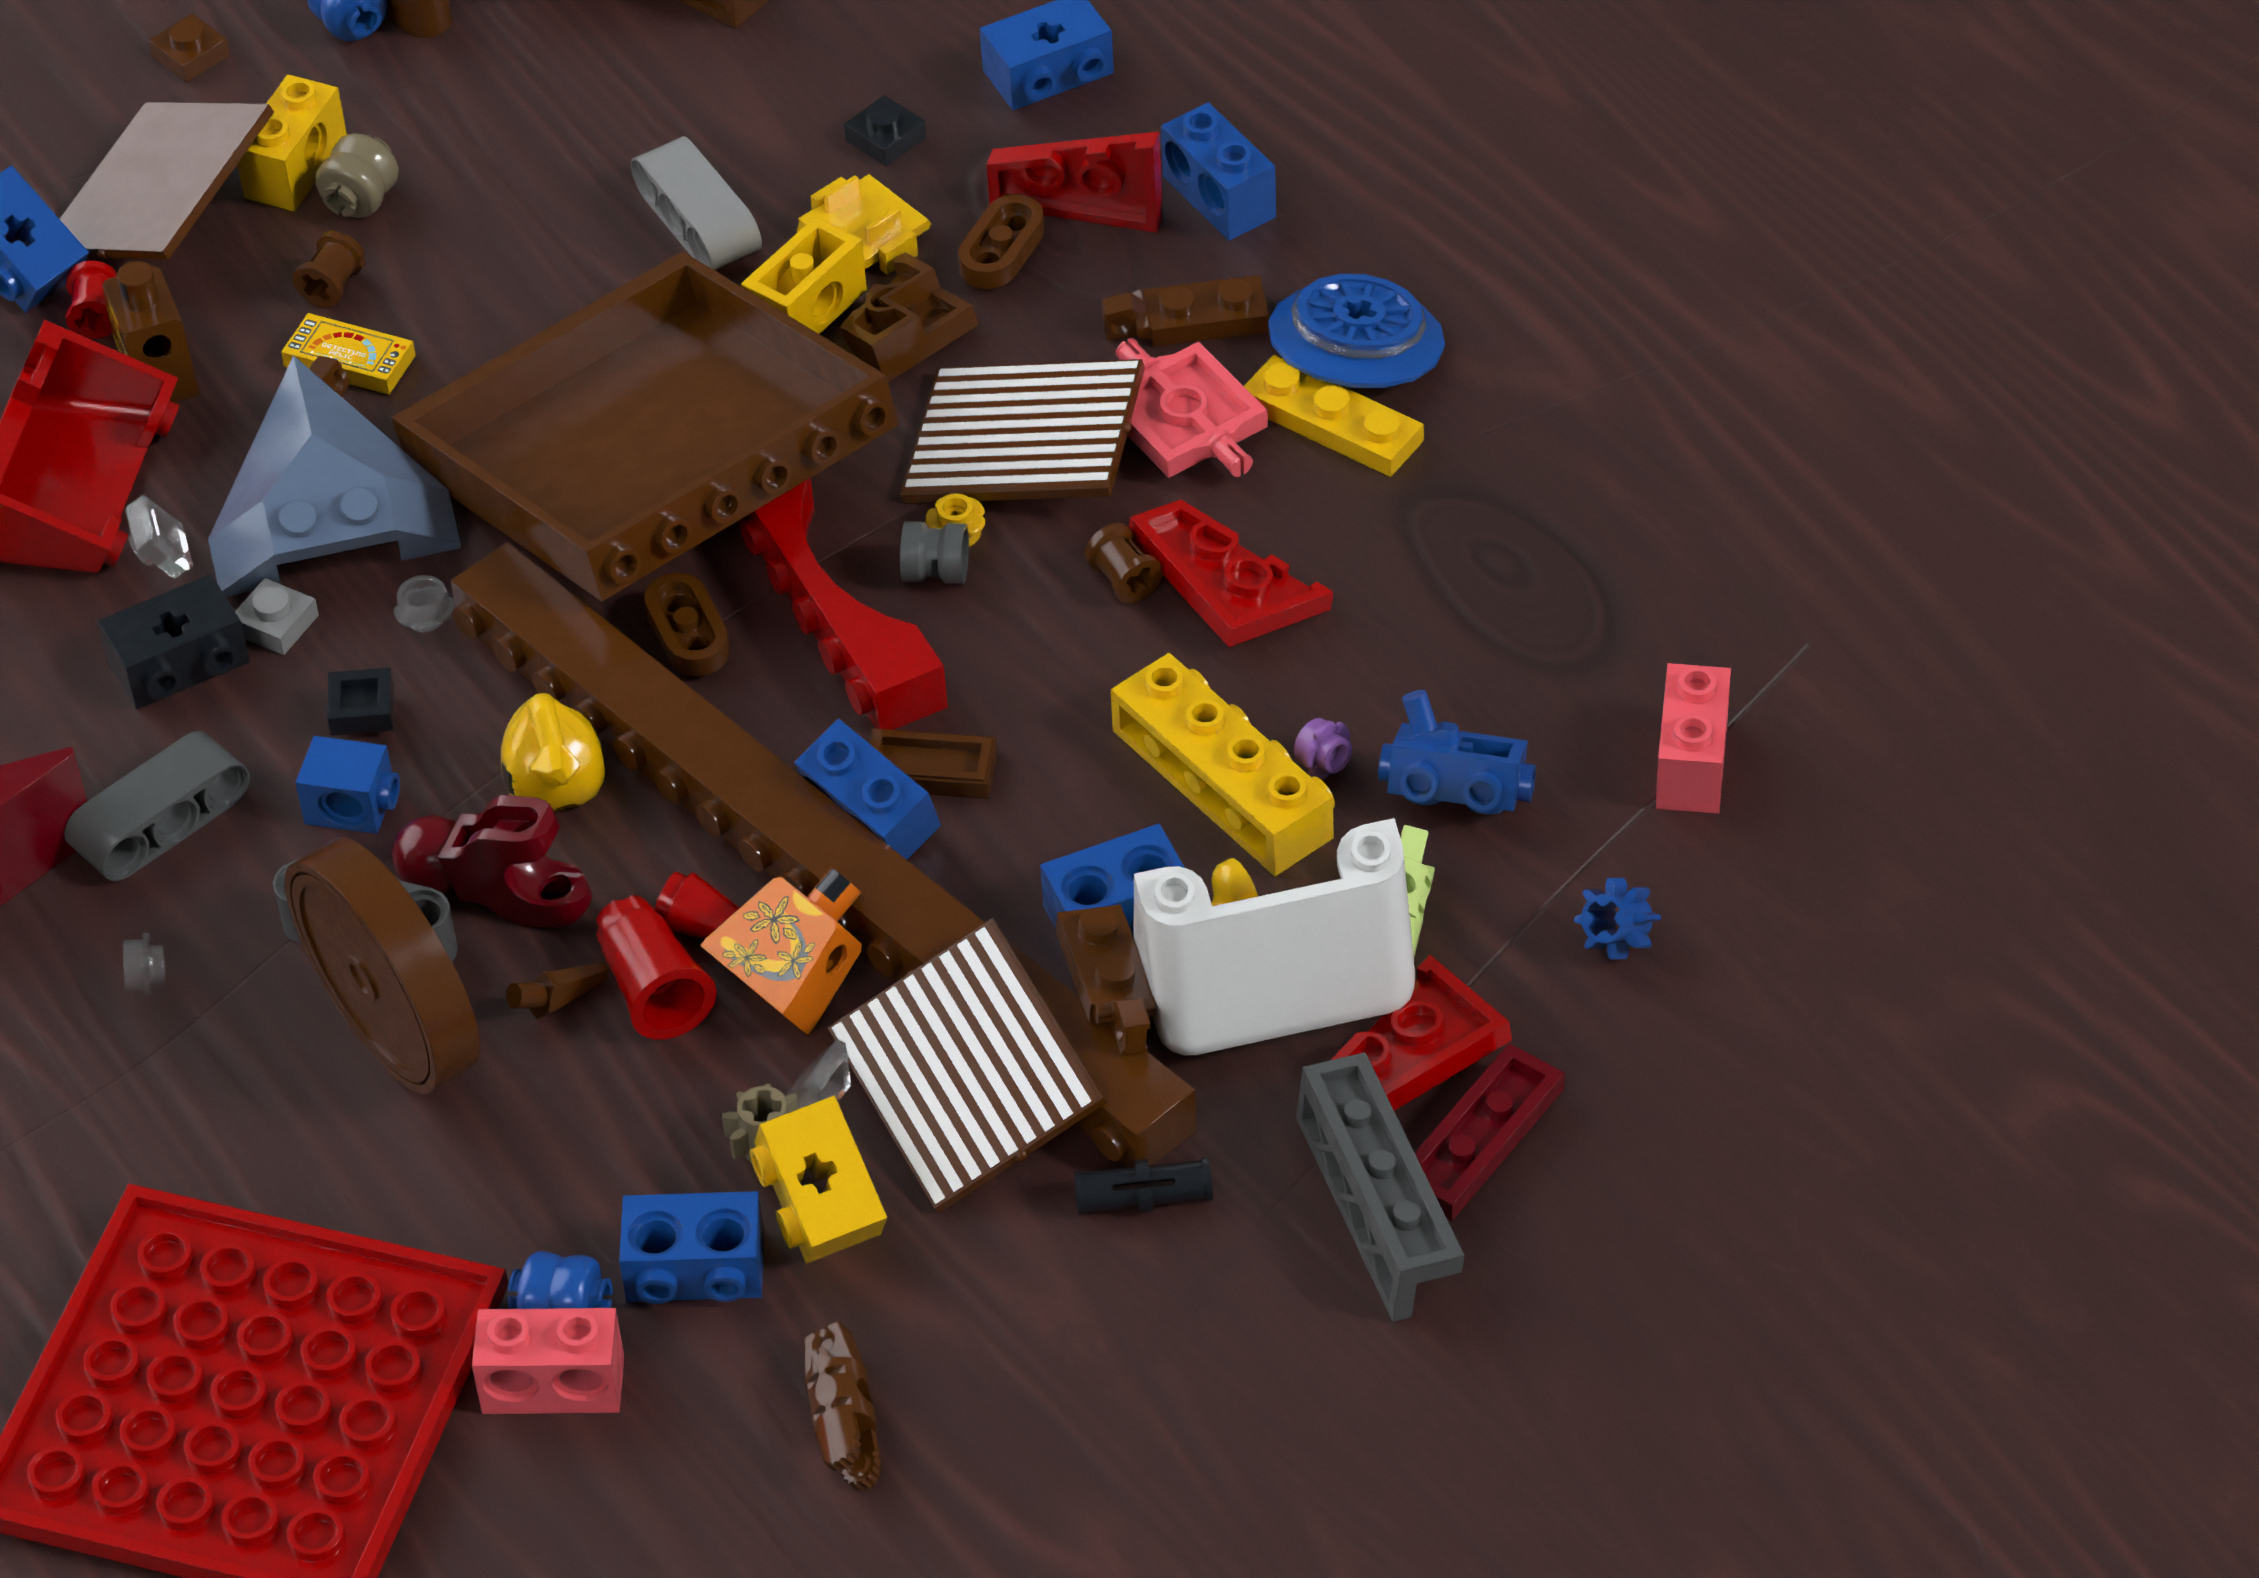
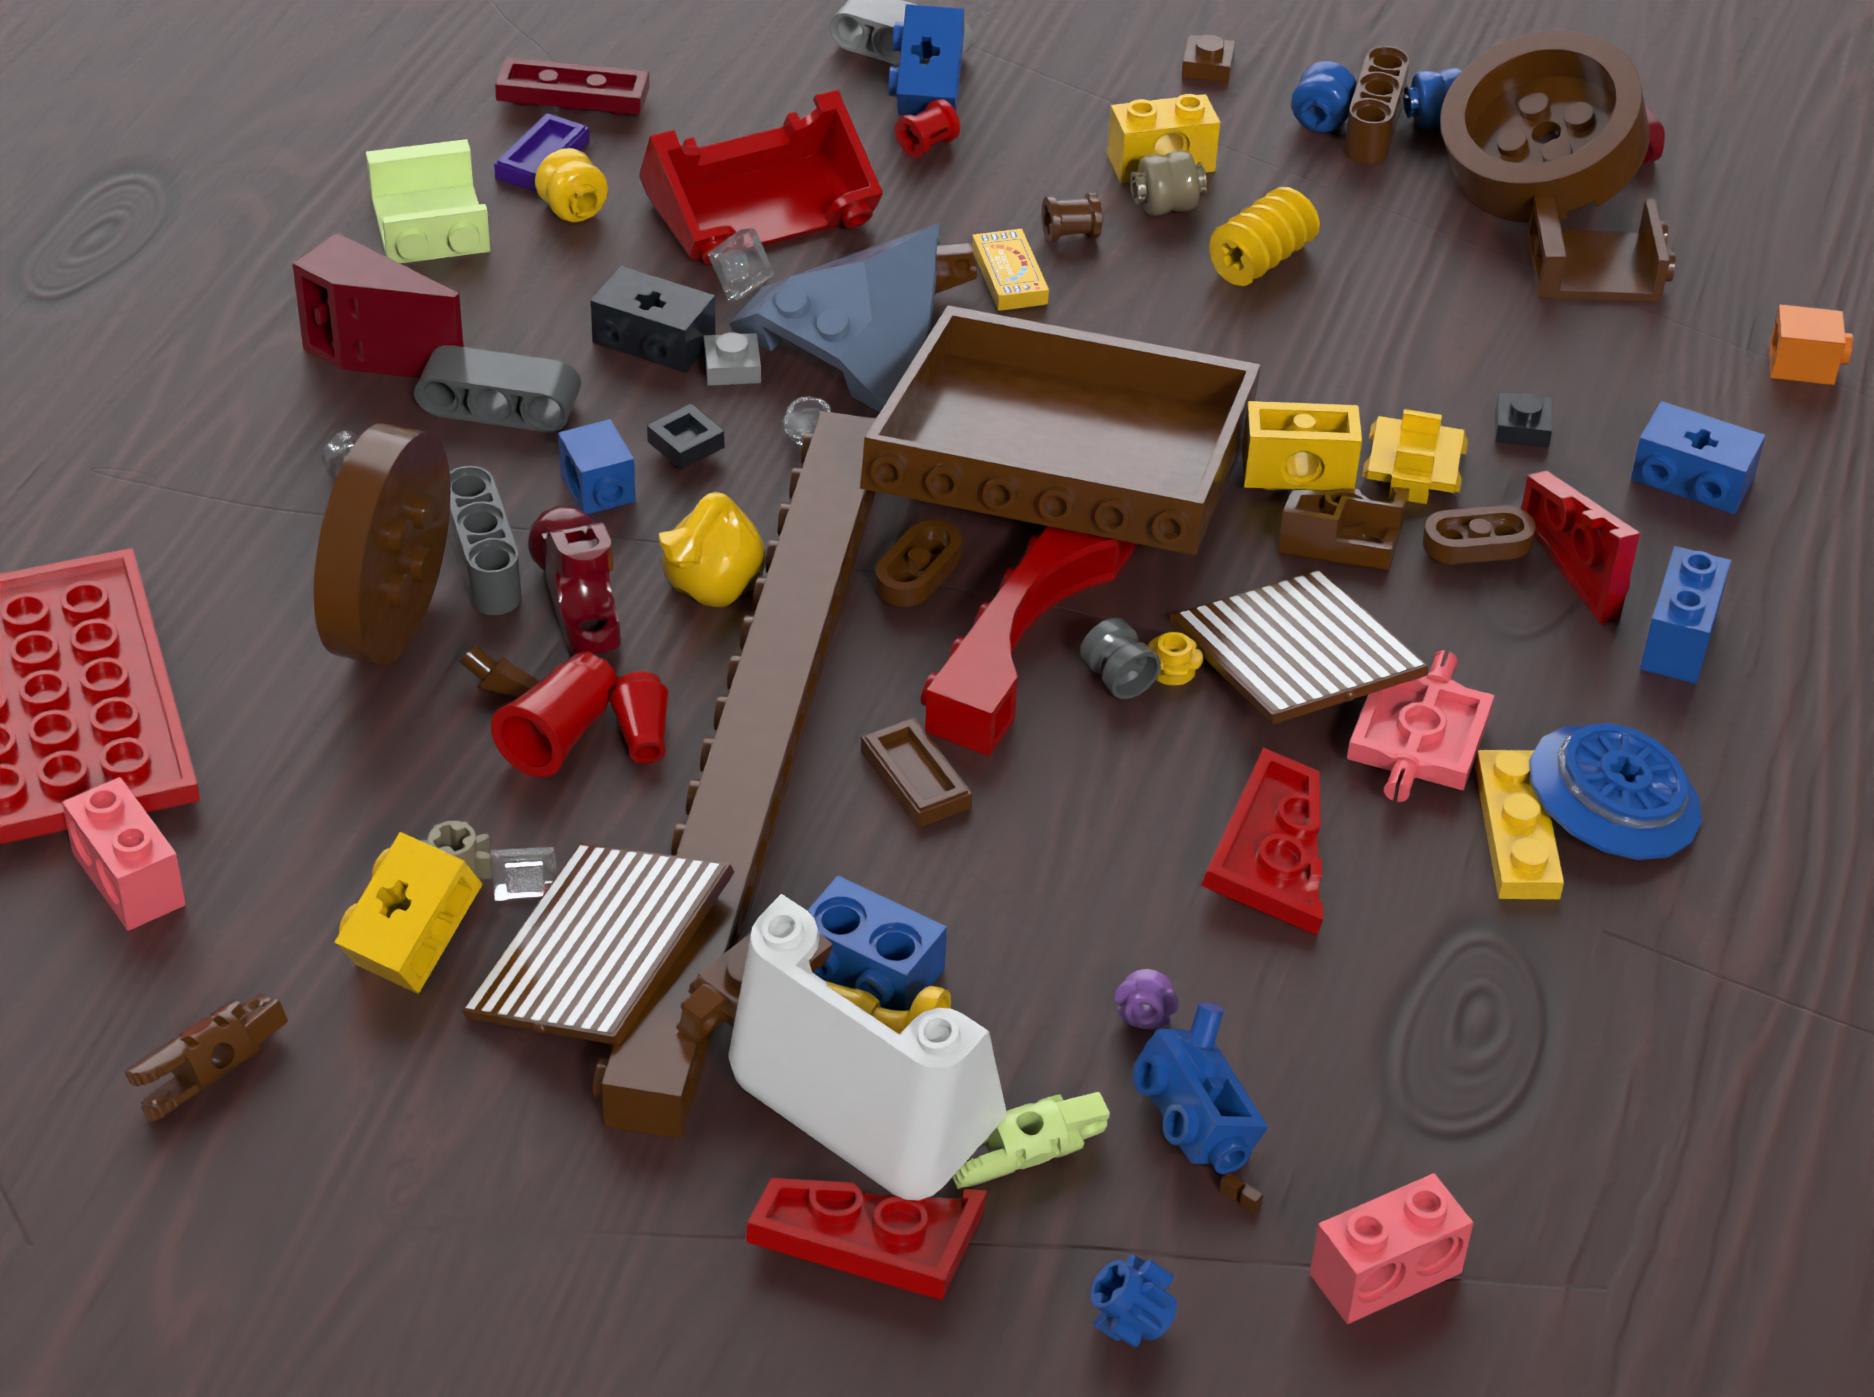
camera: 50 degrees right, 5 degrees down
(142, 308) = (913, 159): reddish brown torso -> none
(161, 177) = (1055, 94): piece -> none
(498, 154) = (1263, 235): none -> yellow piece
(559, 1282) = (196, 826): blue piece -> none
(692, 1247) = (296, 878): blue brick -> none
(696, 203) = (1331, 354): light grey beam -> none
(791, 946) = (631, 777): orange torso -> none
(869, 788) = (826, 740): blue brick -> none
(1123, 563) = (1221, 773): reddish brown bush -> none
(1188, 311) = (1531, 678): reddish brown hinge -> none
(1190, 1179) = (597, 1146): black pin -> none
(1223, 763) = (1067, 945): yellow brick -> none
(1376, 1180) = (688, 1276): dark grey fence -> none
(1487, 1126) = (818, 1330): dark red plate -> none
(1559, 801) = (1235, 1188): none -> reddish brown piece

